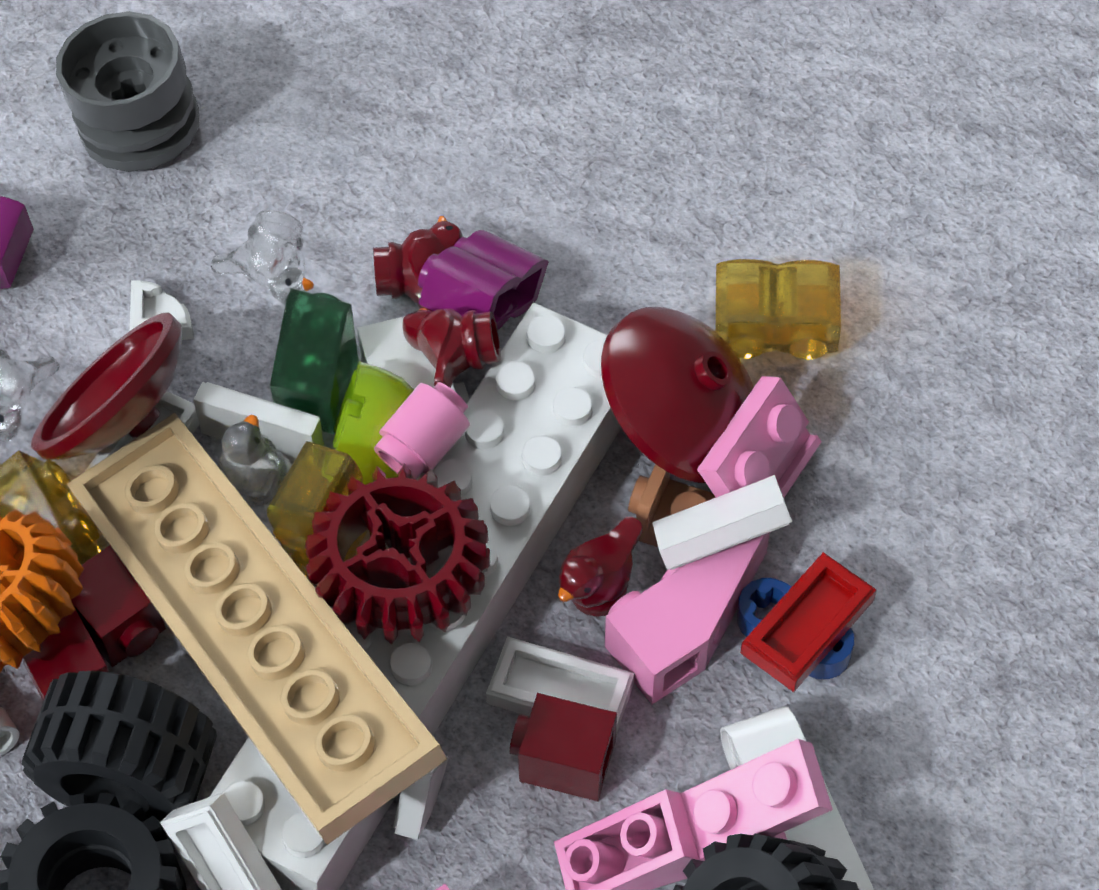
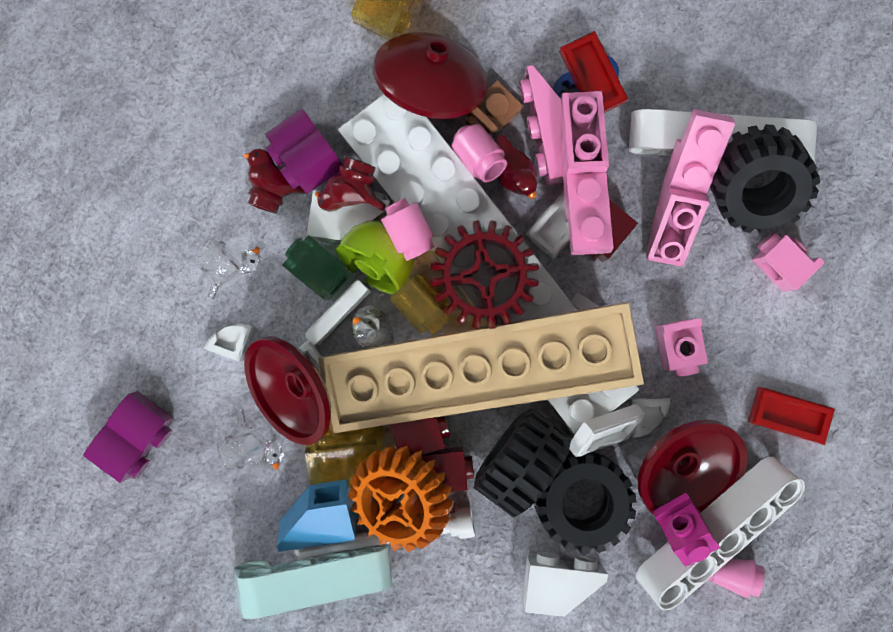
camera: 60 degrees left, 30 degrees up
(128, 91) = (48, 303): dark grey wheel -> none
(593, 497) = (479, 153): none -> bright pink brick
(633, 649) = (585, 173): none -> bright pink slope
(721, 523) = (524, 91): white tile -> none
(761, 441) = (483, 50): bright pink plate -> none

